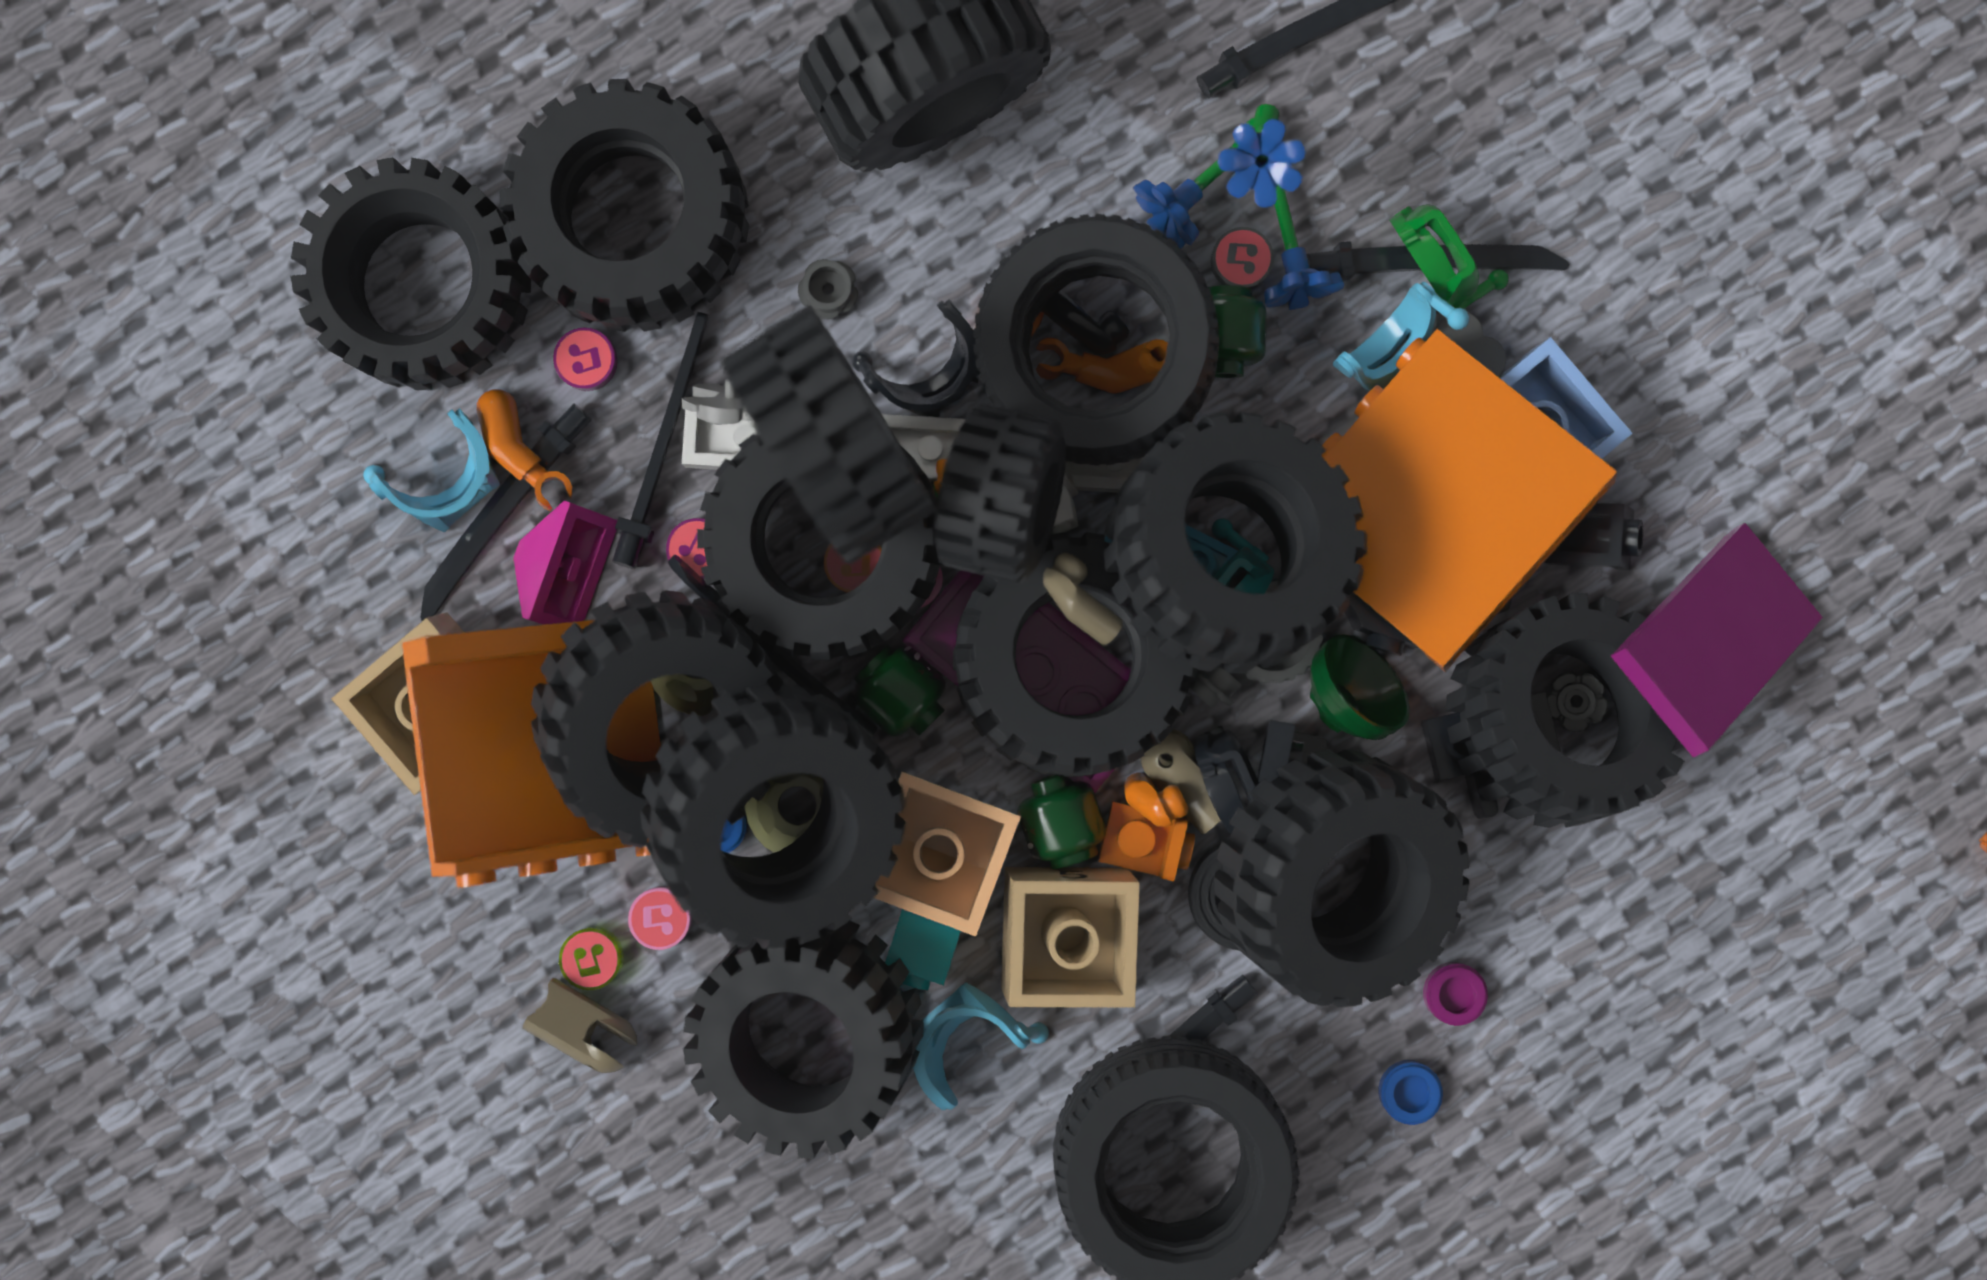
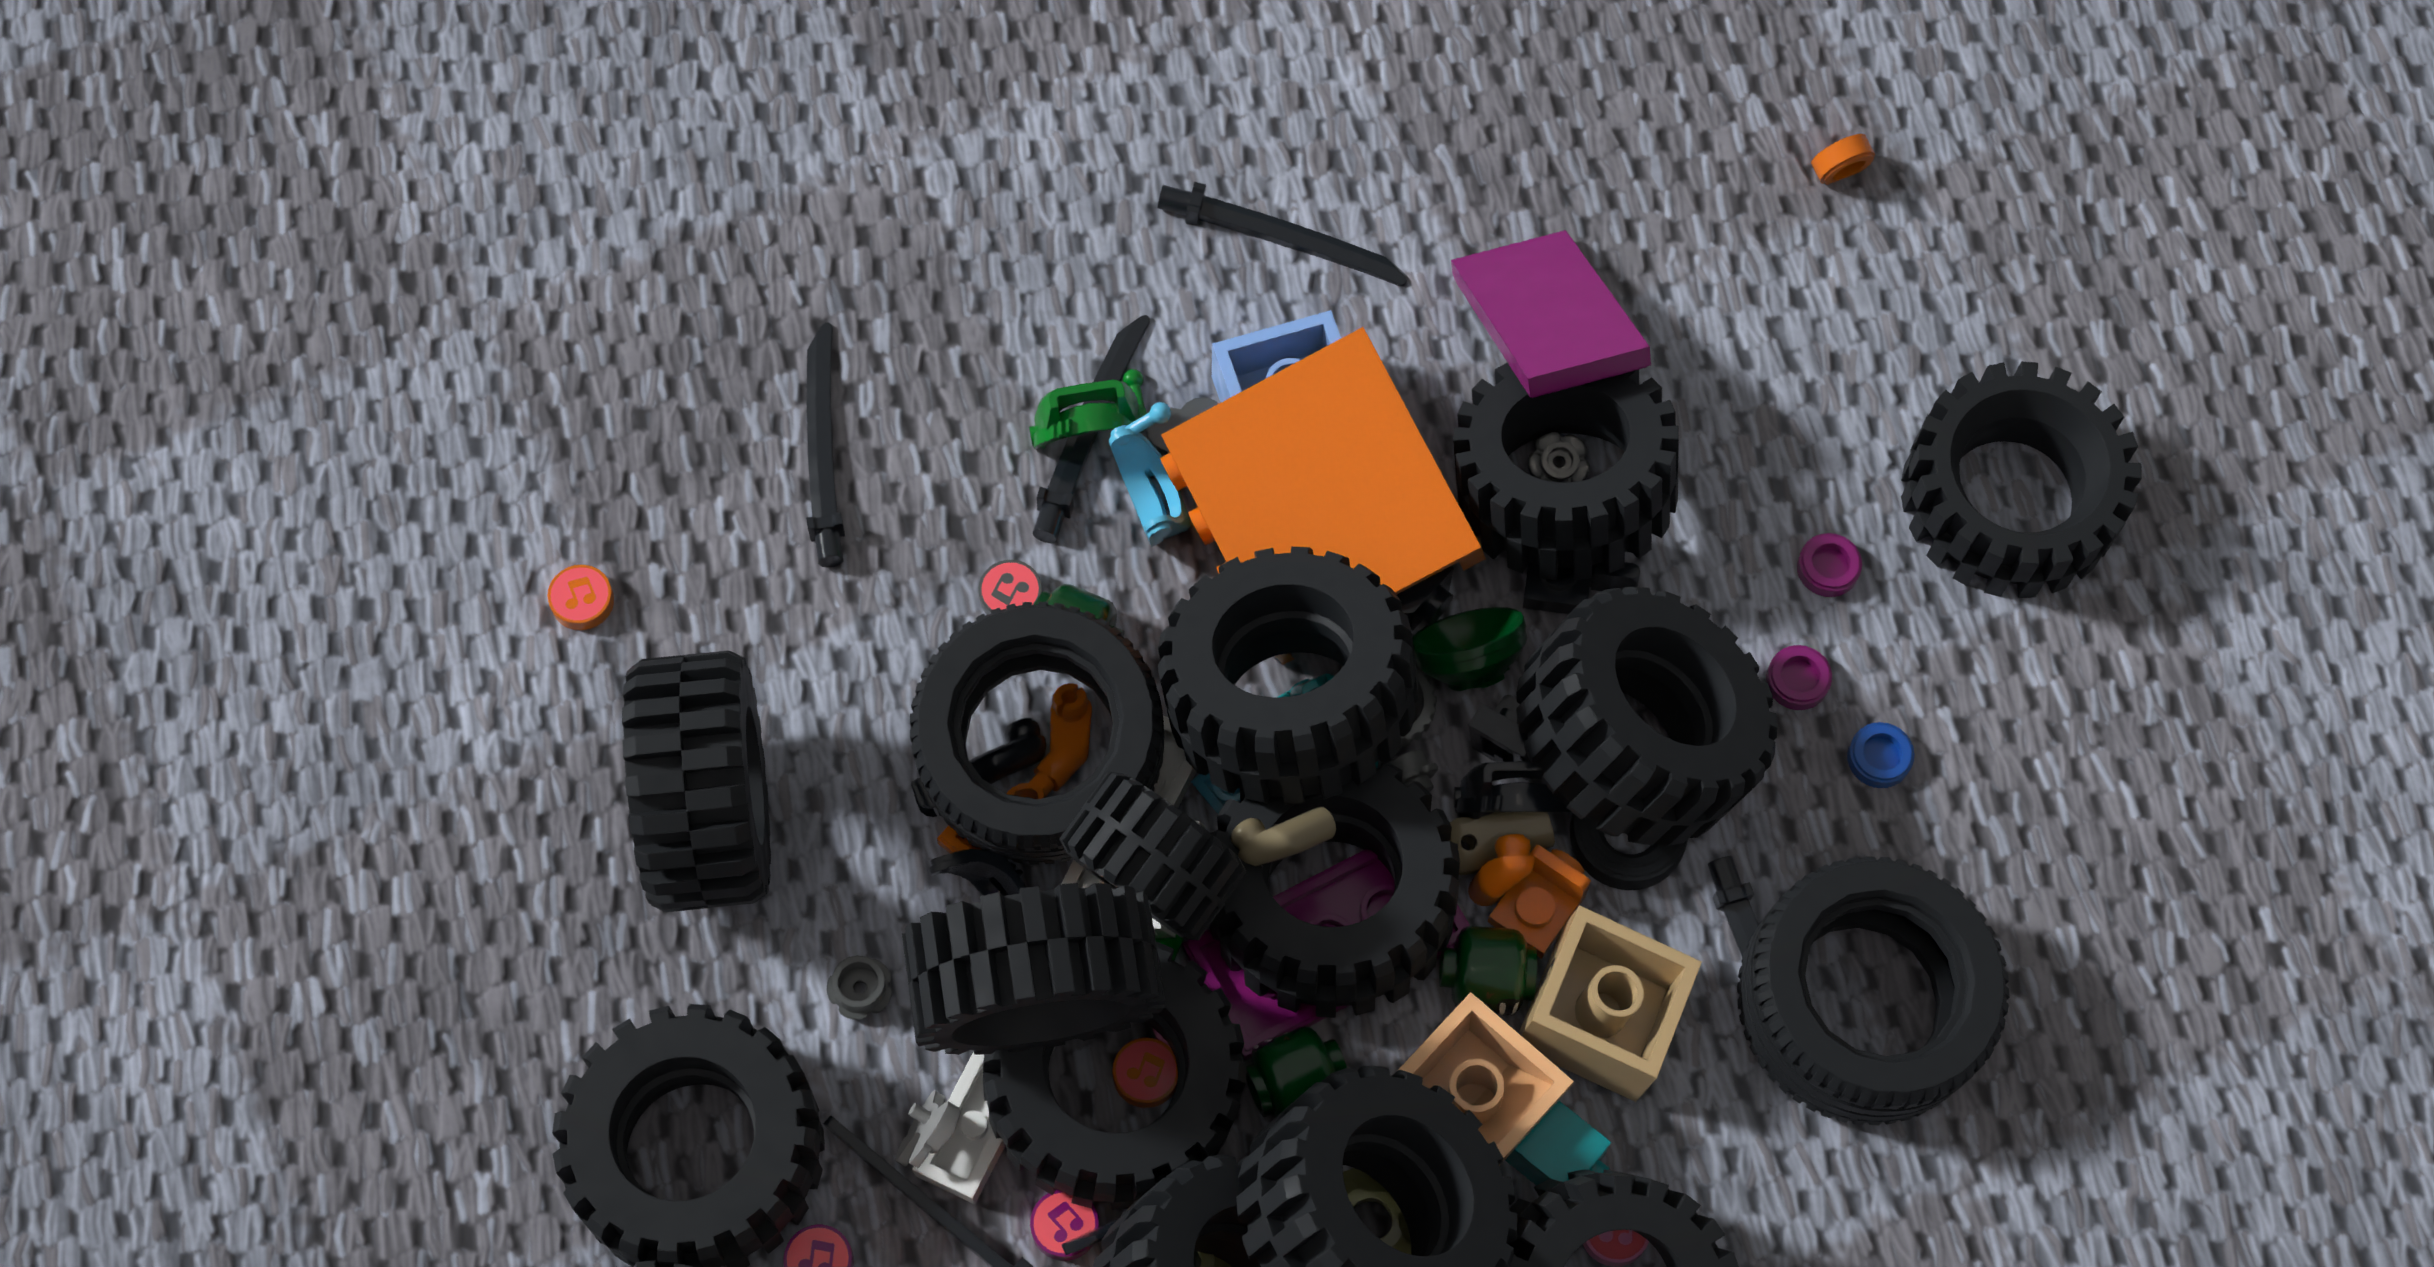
camera: 65 degrees left, 20 degrees down
(942, 1022) = (1639, 1149): medium azure helmet -> none
(1260, 164) = (946, 512): blue plant -> none
(1579, 983) = (1829, 565): none -> magenta tile
(1602, 539) = (1418, 379): black bracket -> none
(1707, 343) = (1281, 232): none -> black sword
(1795, 1179) = (2051, 420): none -> black tyre

